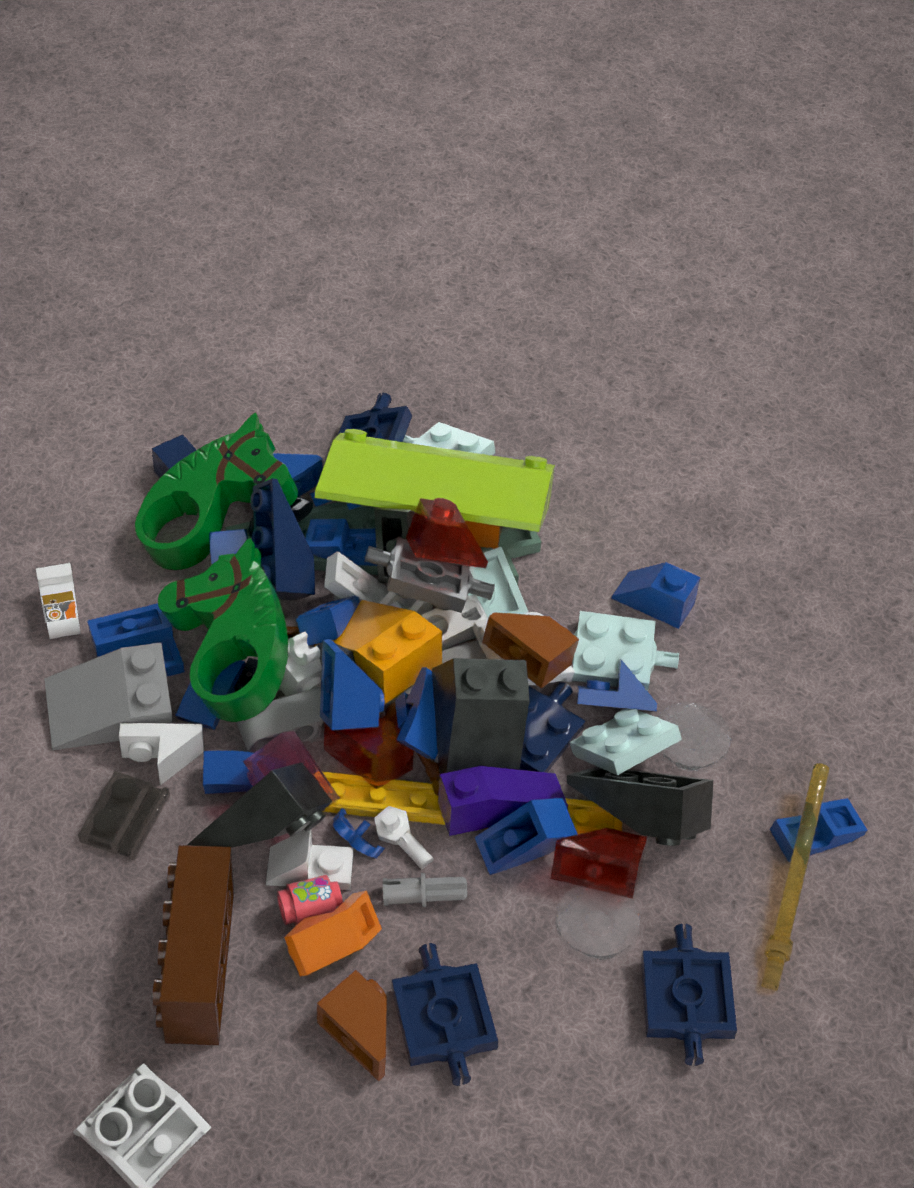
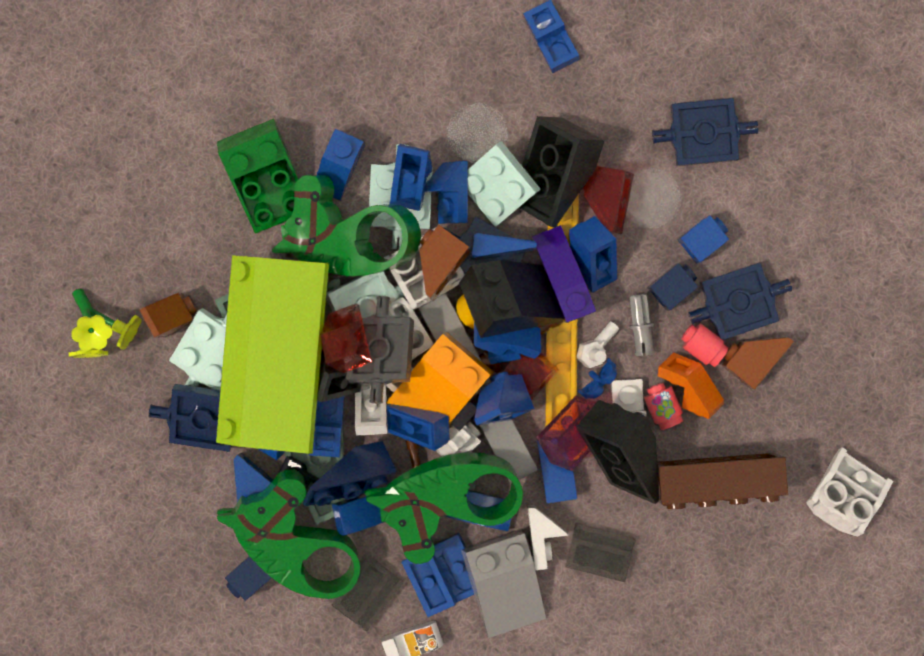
camera: 90 degrees left, 40 degrees up
(130, 573) = (369, 595): none -> clear smoke plate
(389, 958) = (704, 345): none -> coral brick
(473, 928) = (673, 286): none -> dark blue brick
(478, 338) = (95, 329): none -> neon yellow plant
(490, 413) = (169, 314): none -> dark orange slope
(537, 973) = (704, 238): none -> blue brick
(545, 712) = (491, 246): none -> blue slope
(570, 570) = (322, 236): none -> green animal
(642, 638) = (410, 176): none -> blue slope
(645, 523) = (260, 174): none -> green slope
(779, 944) = (656, 67): clear yellow bar -> none

